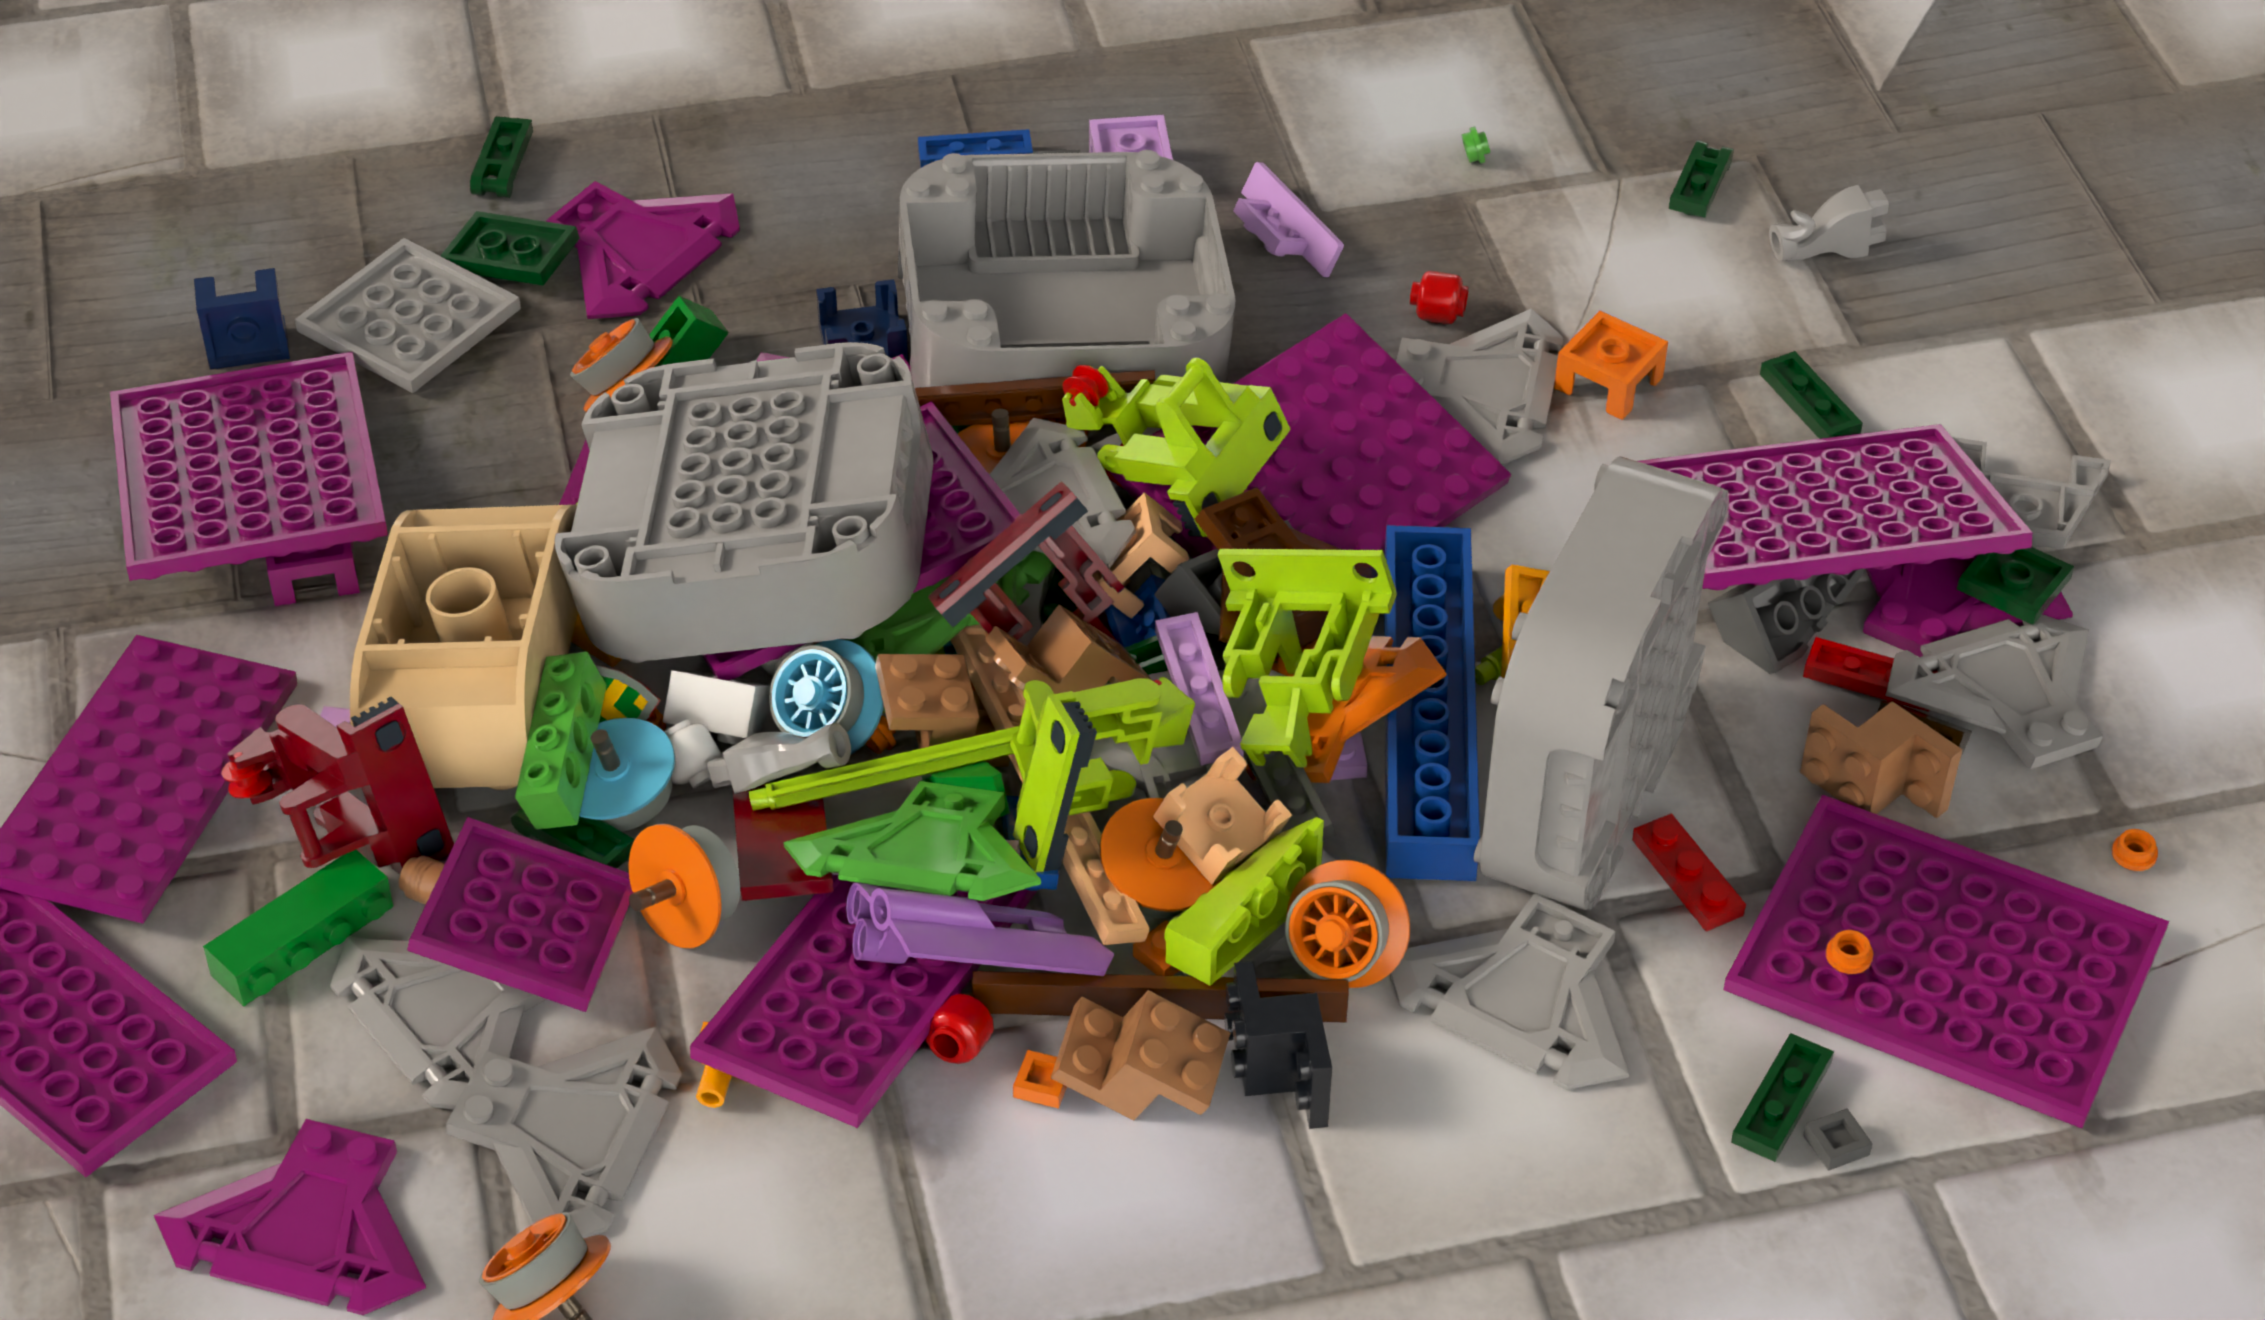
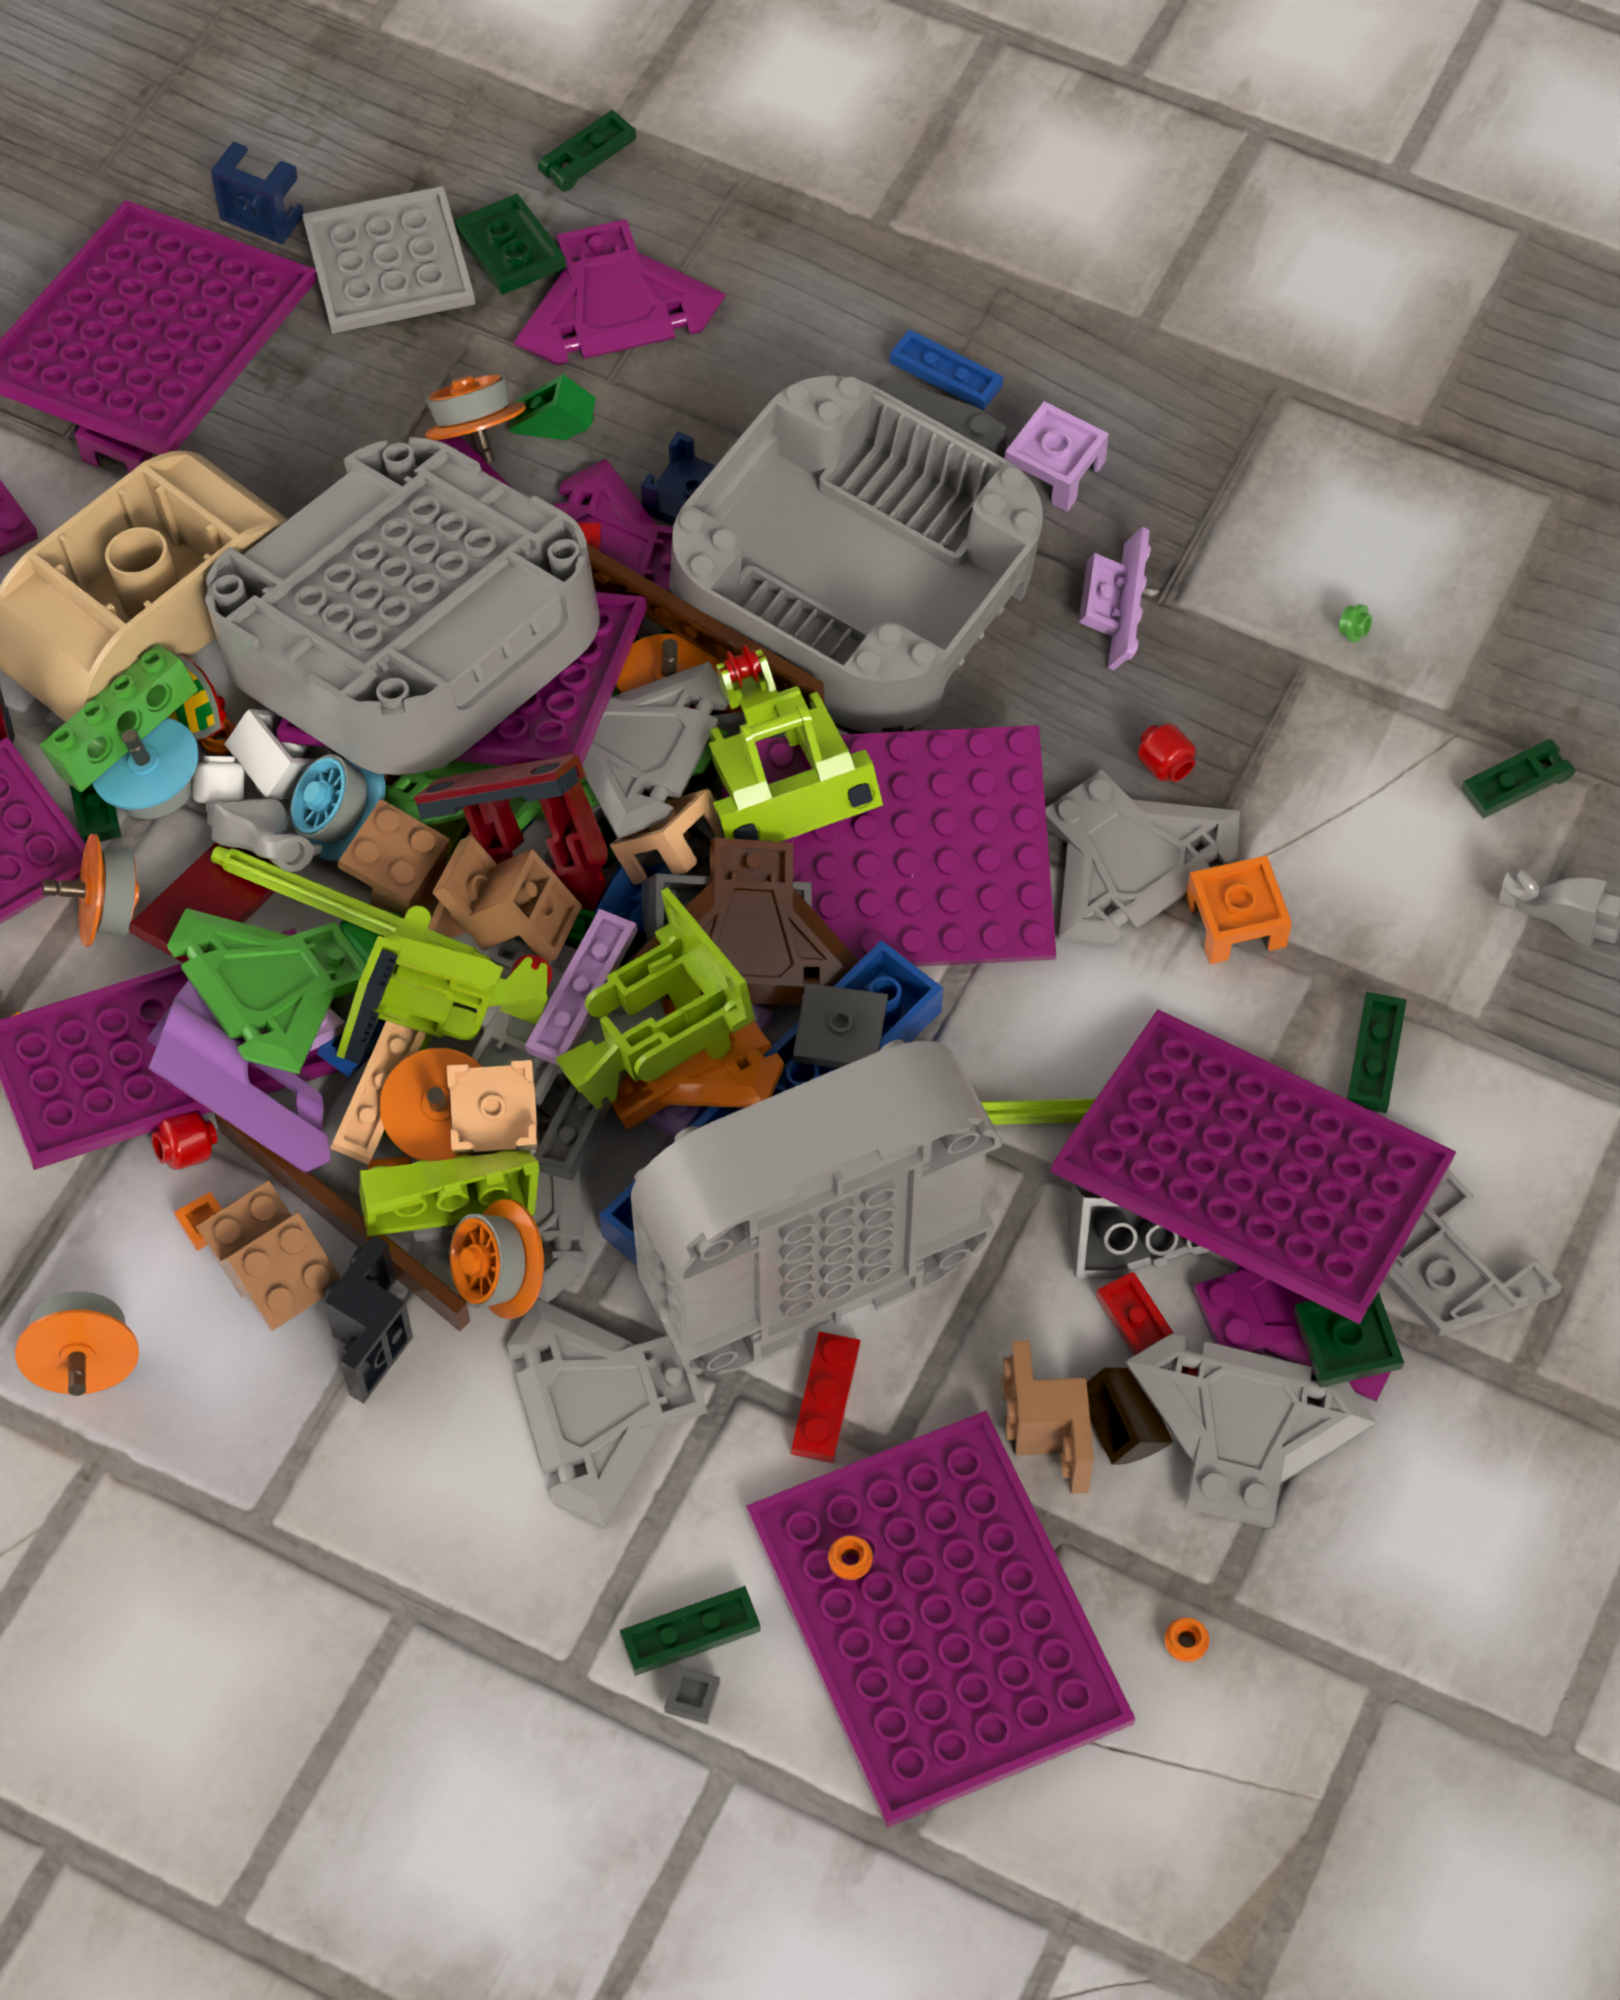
camera: 40 degrees right, 15 degrees up
(1055, 1225) = (77, 1344): none -> orange piece
(1435, 597) = (838, 1025): none -> dark grey plate

